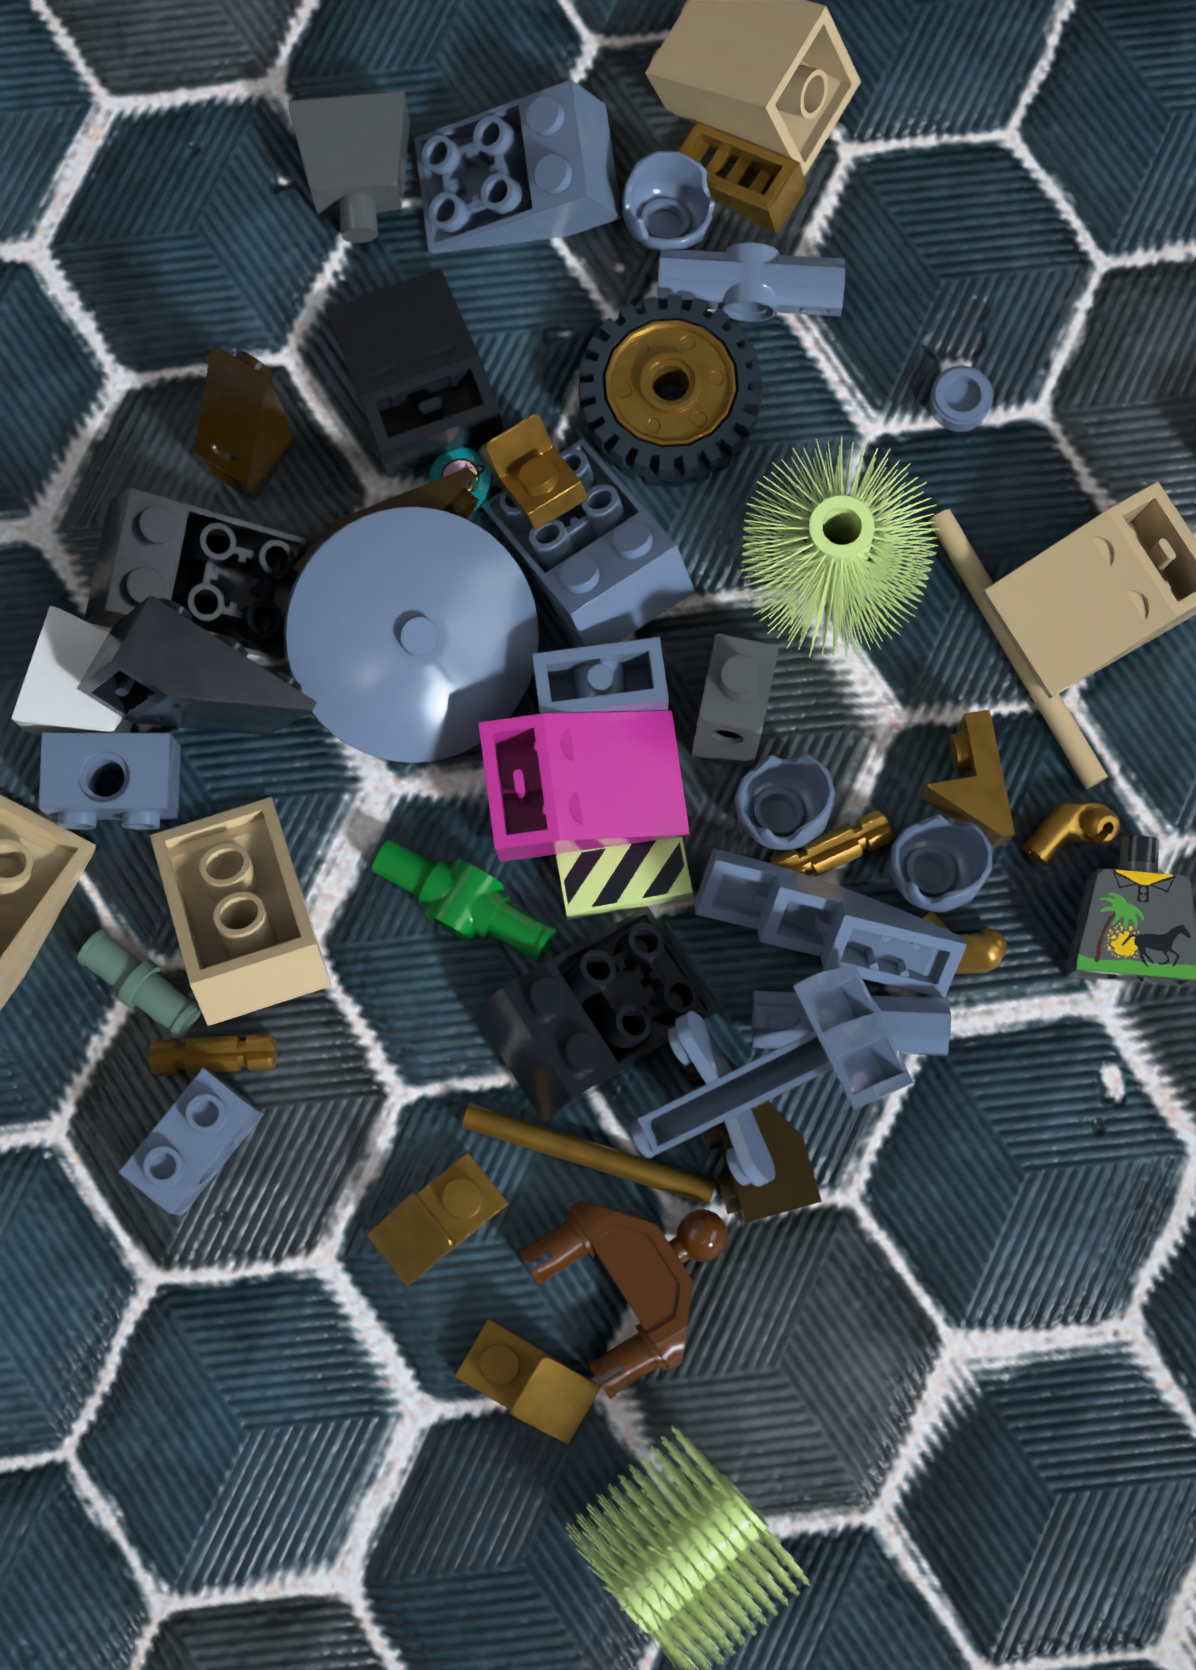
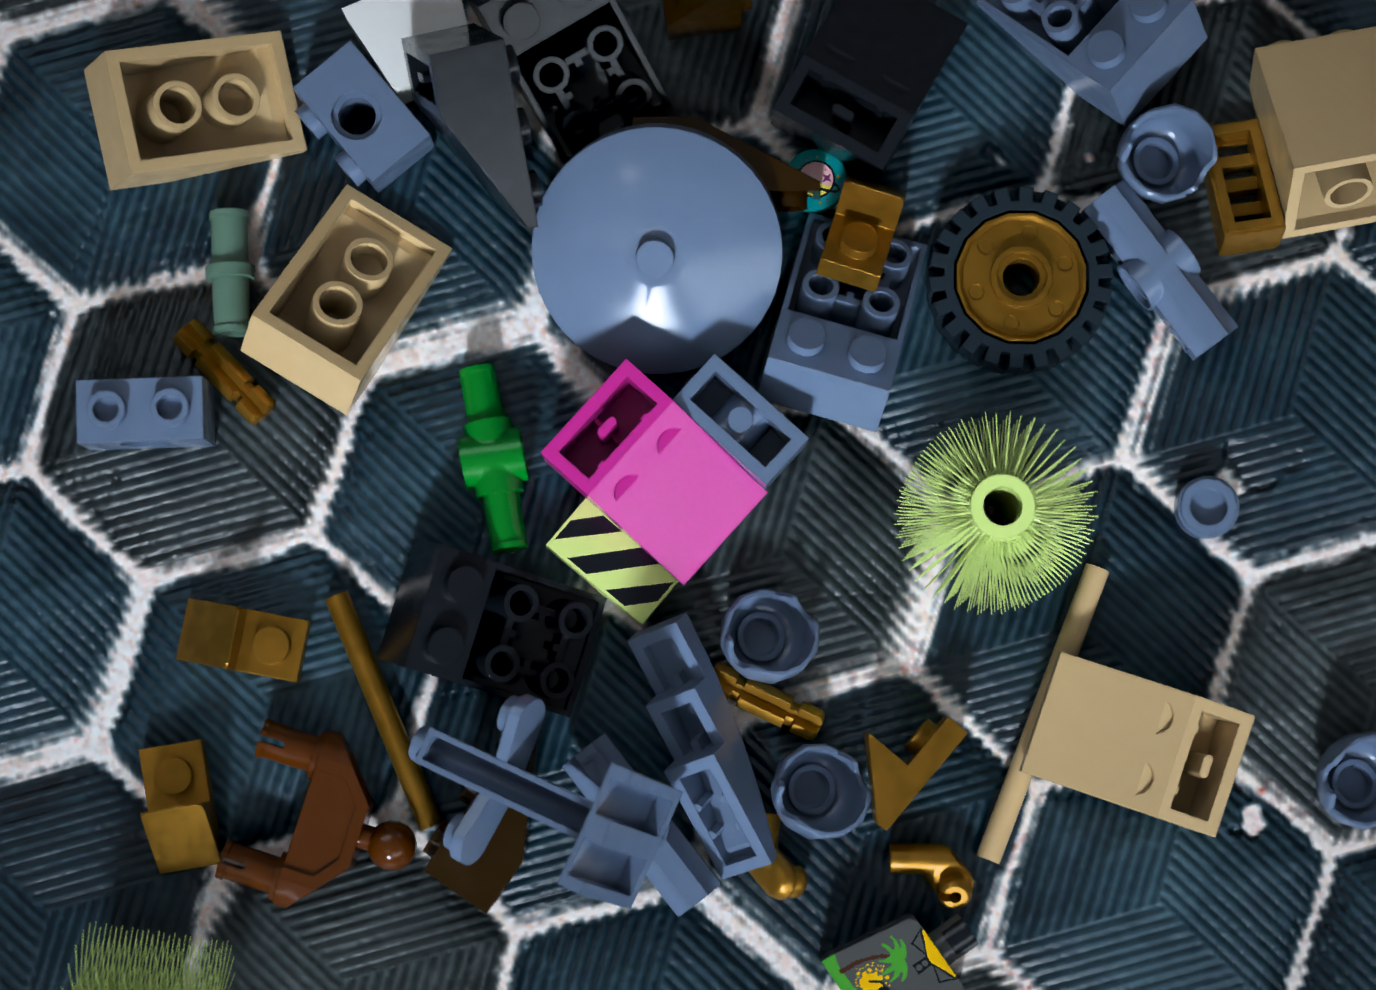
camera: 45 degrees right, 5 degrees up
(735, 700) = (816, 532): dark grey torso -> none

